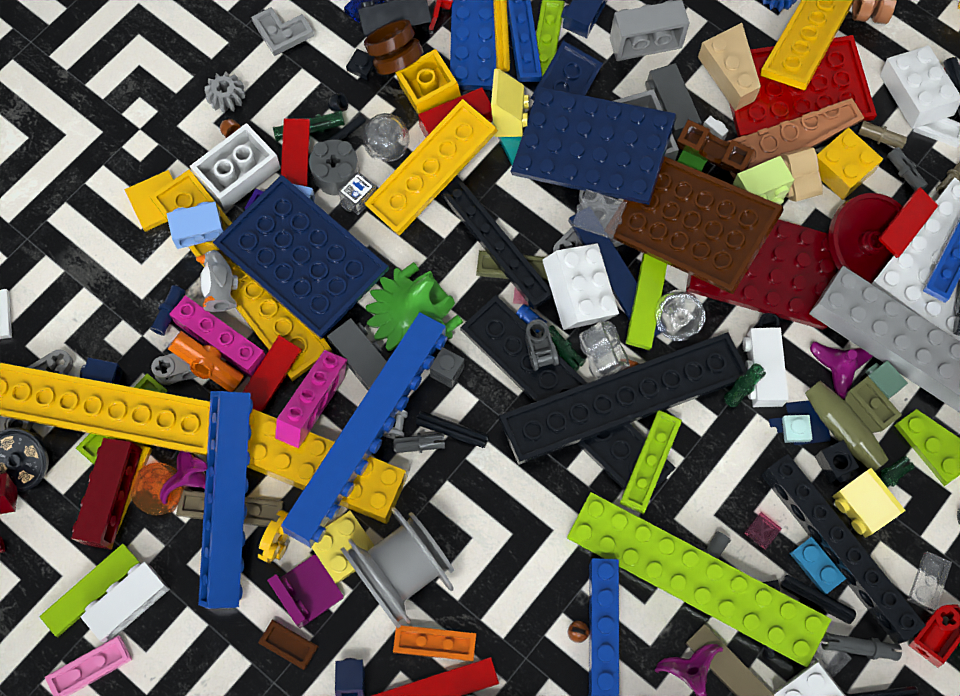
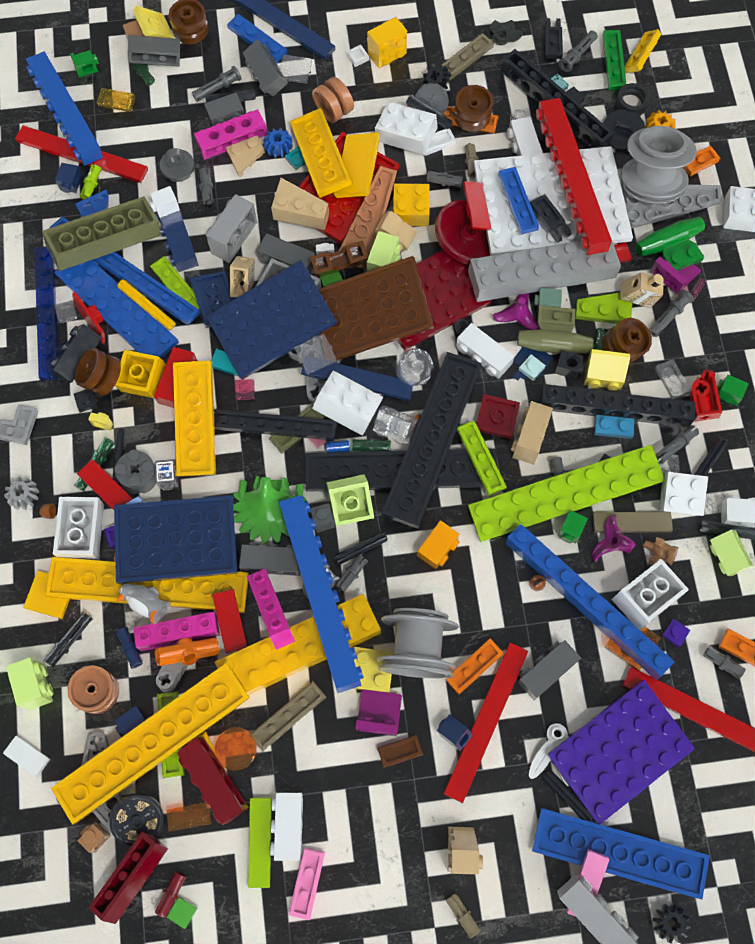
camera: 45 degrees left, 0 degrees up
(58, 256) = (30, 683): none -> yellowish green brick
(58, 503) = (188, 817): none -> clear orange plate
(100, 255) = (52, 658): none -> black pin
(100, 314) = (91, 701): none -> nougat wheel
(189, 473) = (246, 720): magenta piece -> none
(195, 224) = (94, 582): light blue brick -> none
(225, 499) = (285, 711): blue brick -> none
(274, 540) = (335, 707): yellow plate -> none
(338, 102) = (97, 435): black hinge -> none
(353, 93) = (101, 421): none -> light yellow plate
(386, 137) = (147, 427): clear cylinder -> none
(486, 375) = (350, 500): none -> yellowish green brick
(506, 186) = (245, 389): none -> clear pink plate
(508, 105) = (200, 342): light yellow slope -> none
(523, 500) = (438, 544): none -> light orange brick
(540, 350) = (362, 455): dark grey piece -> none
(611, 80) = (241, 270): none -> tan torso
(647, 294) = (387, 375): lime tile -> none
(667, 616) = (572, 527): none -> green brick
(711, 440) = (497, 416): none -> dark red plate
(727, 487) = (531, 432): none -> tan wedge
(744, 385) = (485, 370): clear green pin -> none
(763, 530) = (570, 436): clear pink tile -> none
(780, 20) = (295, 158): none -> teal tile
(818, 599) = (631, 443): black axle -> none
(834, 78) = (359, 159): none -> yellow tile
(882, 135) = (412, 172): dark tan axle -> none
(925, 496) = (628, 337): none -> reddish brown wheel

